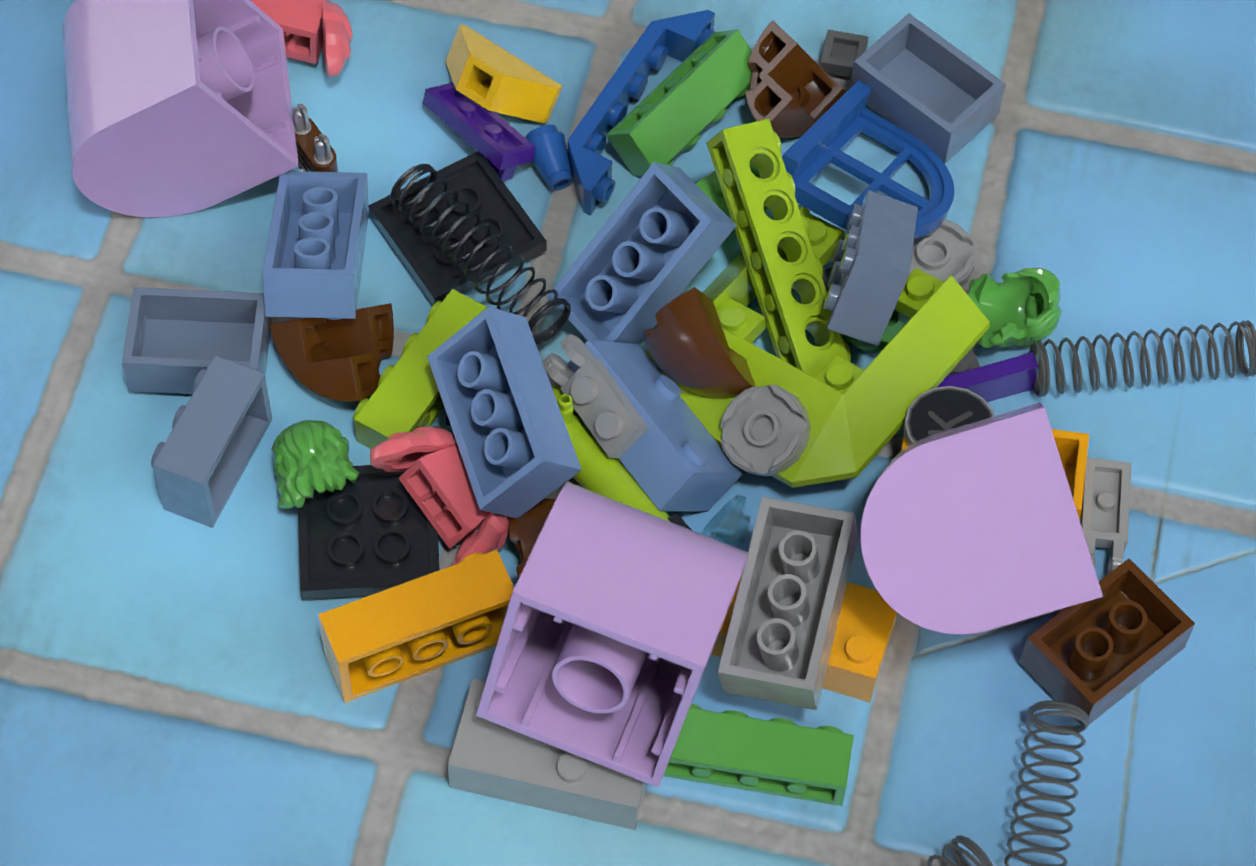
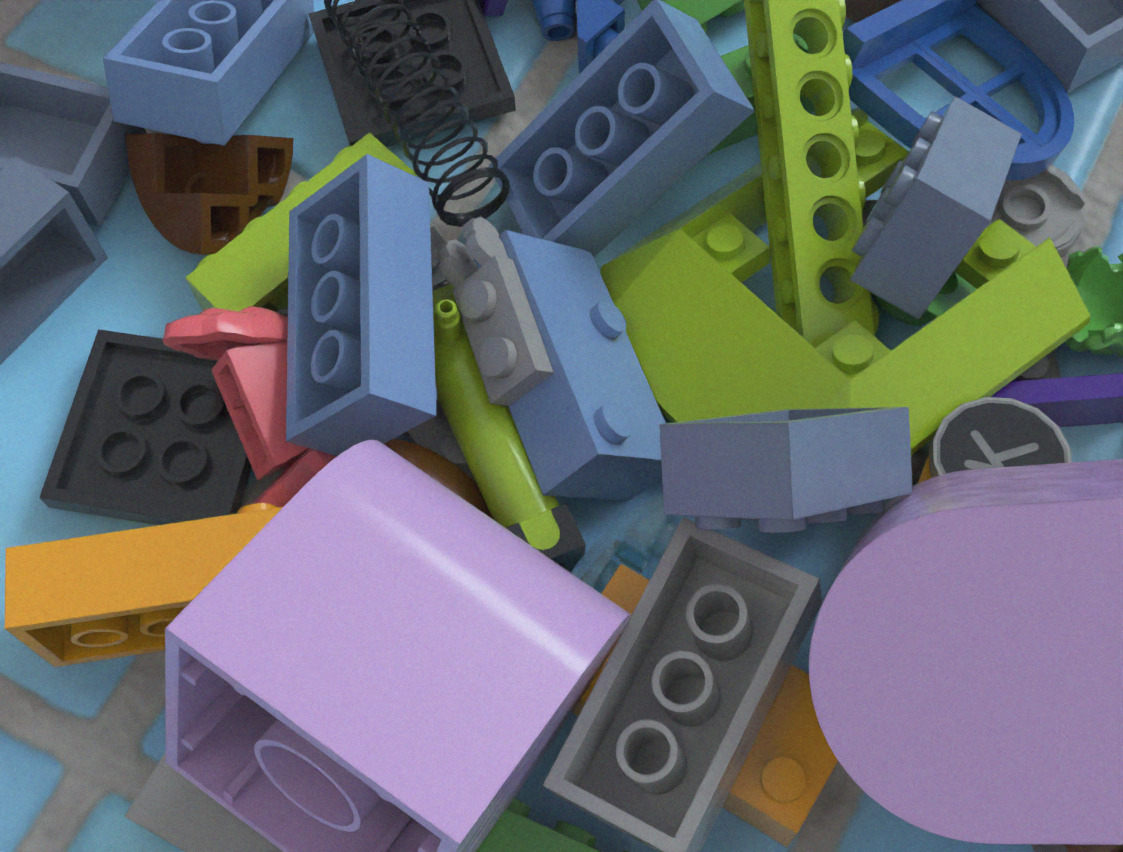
camera: 20 degrees right, 5 degrees up
(310, 458) = (112, 321): bright green hair -> none
(694, 349) = (654, 274): reddish brown brick -> none
(778, 430) = (737, 378): light grey tile -> none
(819, 451) = (785, 466): none -> sand blue piece

